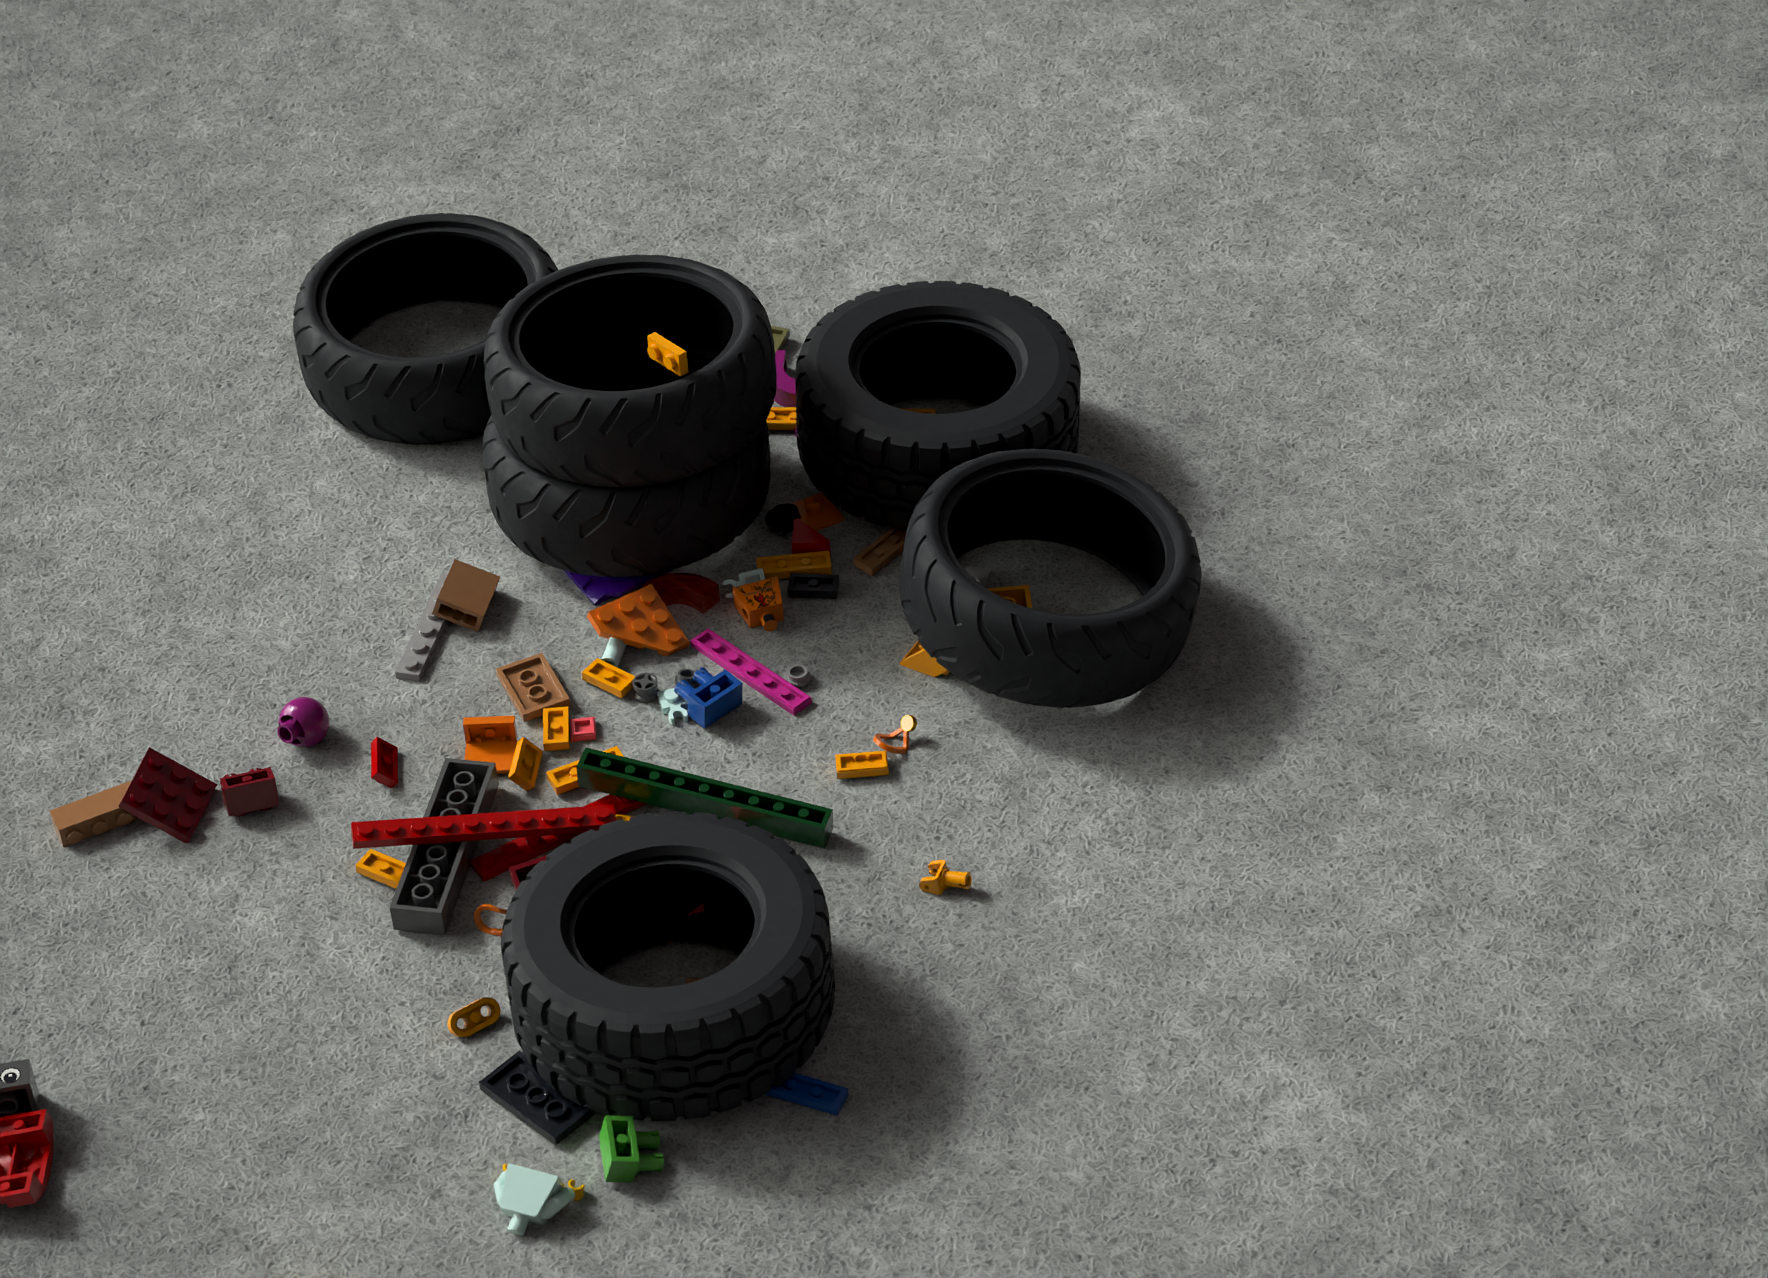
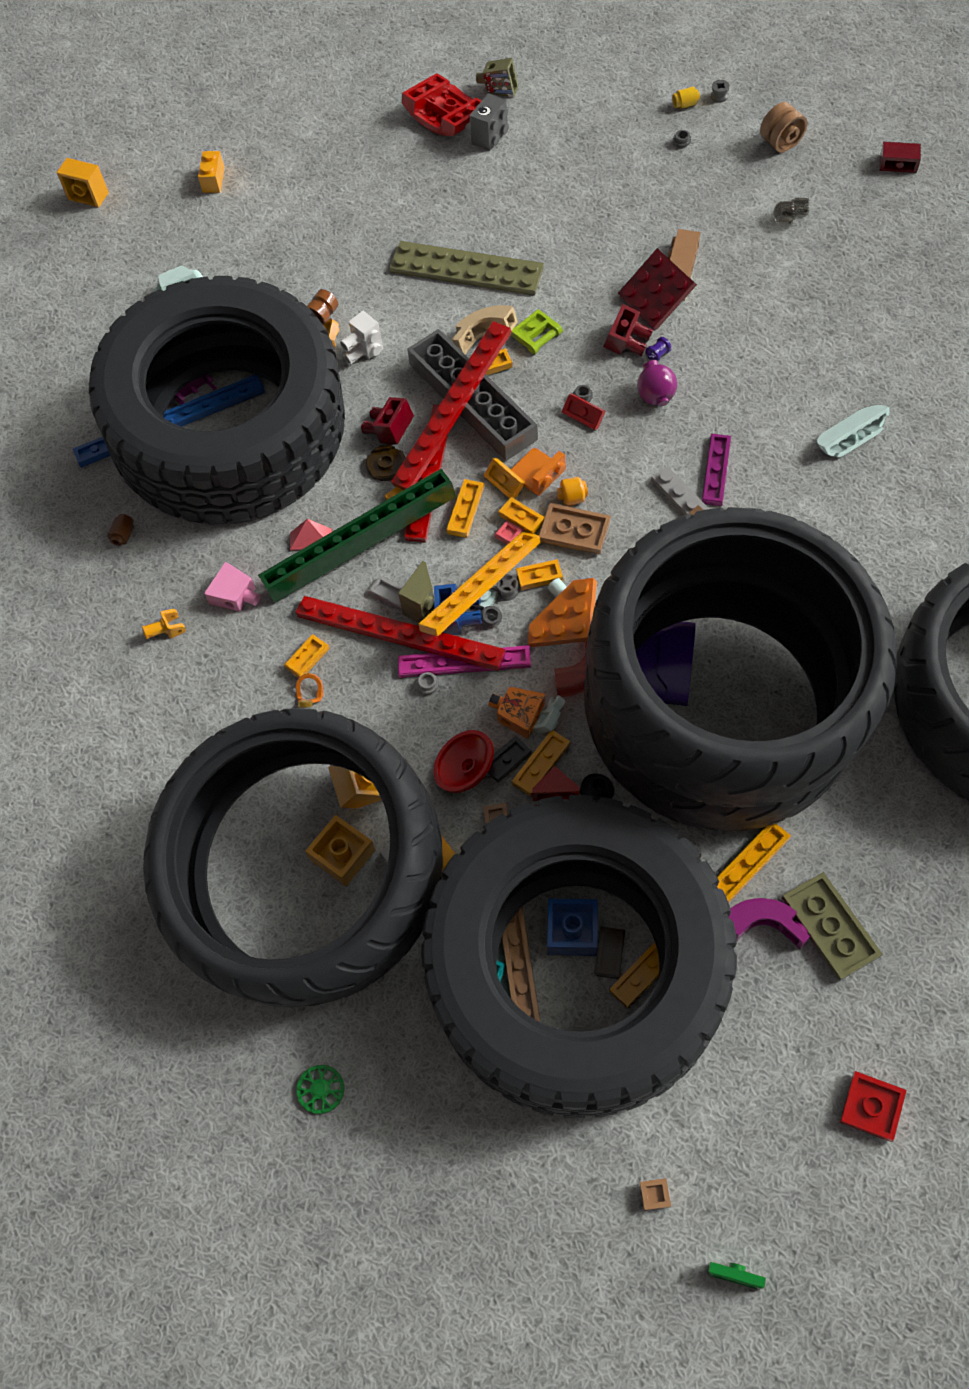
camera: 135 degrees right, 20 degrees up
(231, 581) = (853, 431): none -> light aqua brick
(246, 760) = (657, 350): none -> dark purple bush
(260, 983) = (467, 267): none -> olive plate
(305, 865) = (532, 327): none -> lime plate
(342, 904) = (477, 323): none -> tan arch
(359, 780) = (584, 390): none -> dark grey plate
(363, 645) = (716, 469): none -> magenta tile
(431, 1051) = (323, 305): none -> dark orange wheel
(451, 969) = (364, 338): none -> white brick
(479, 923) = (384, 390): orange piece -> none
(492, 704) = (572, 491): none -> light orange head
(667, 354) = (654, 608): light orange plate -> none
(668, 679) = (479, 584): none -> light orange plate
(719, 720) = (417, 595): none -> olive slope
(734, 760) = (386, 591): none -> light grey tile
(770, 721) = (400, 633): none -> red plate
(850, 580) = (463, 761): none -> red dish
(855, 859) = (231, 589): none -> bright pink torso
(863, 276) = (873, 1106): none -> red plate
(884, 990) = (120, 530): none -> reddish brown brick
(1049, 272) = (736, 1274): none -> green plate
(1191, 515) = (320, 1089): none -> green wheel

